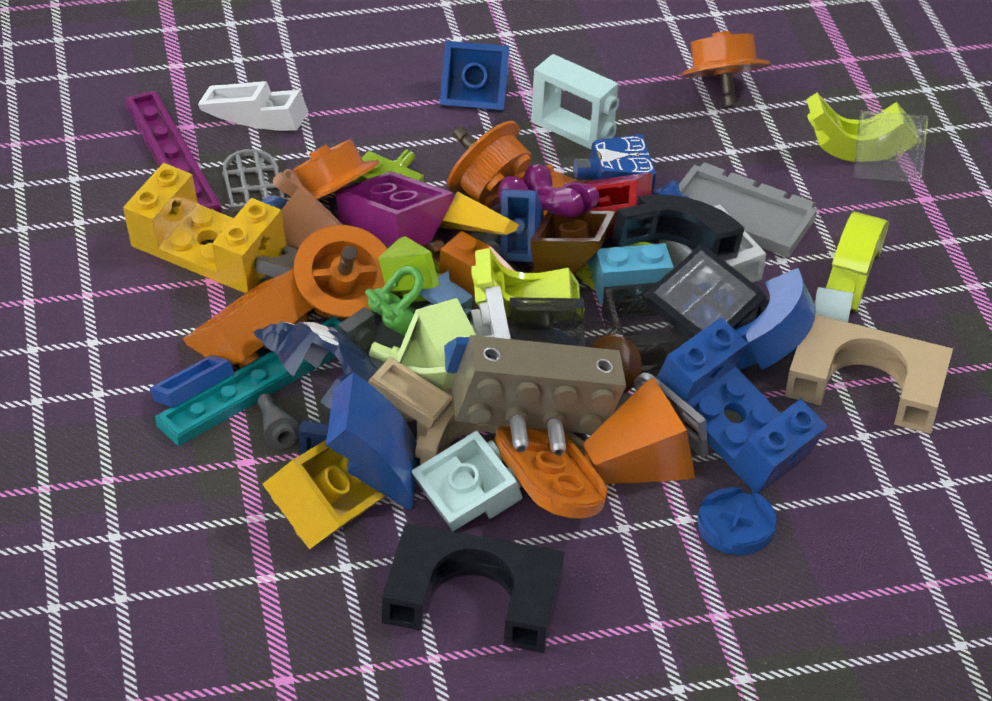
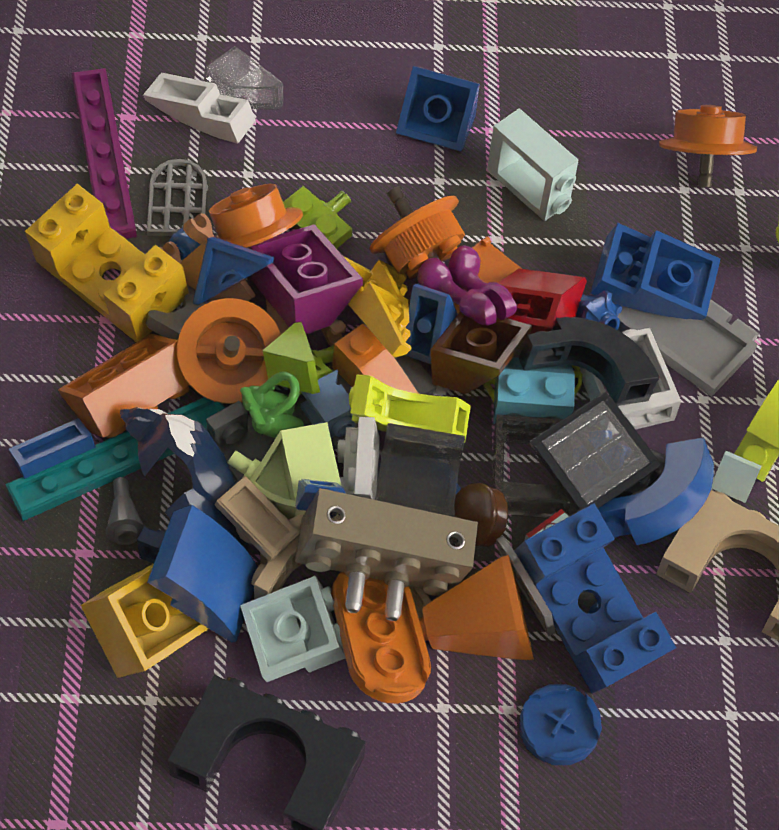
camera: 10 degrees right, 15 degrees up
(288, 75) = (245, 79): none -> clear slope
(321, 208) = (225, 266): none -> blue tile
(615, 159) = (559, 248): blue torso -> none
(711, 166) = (656, 274): none -> blue slope

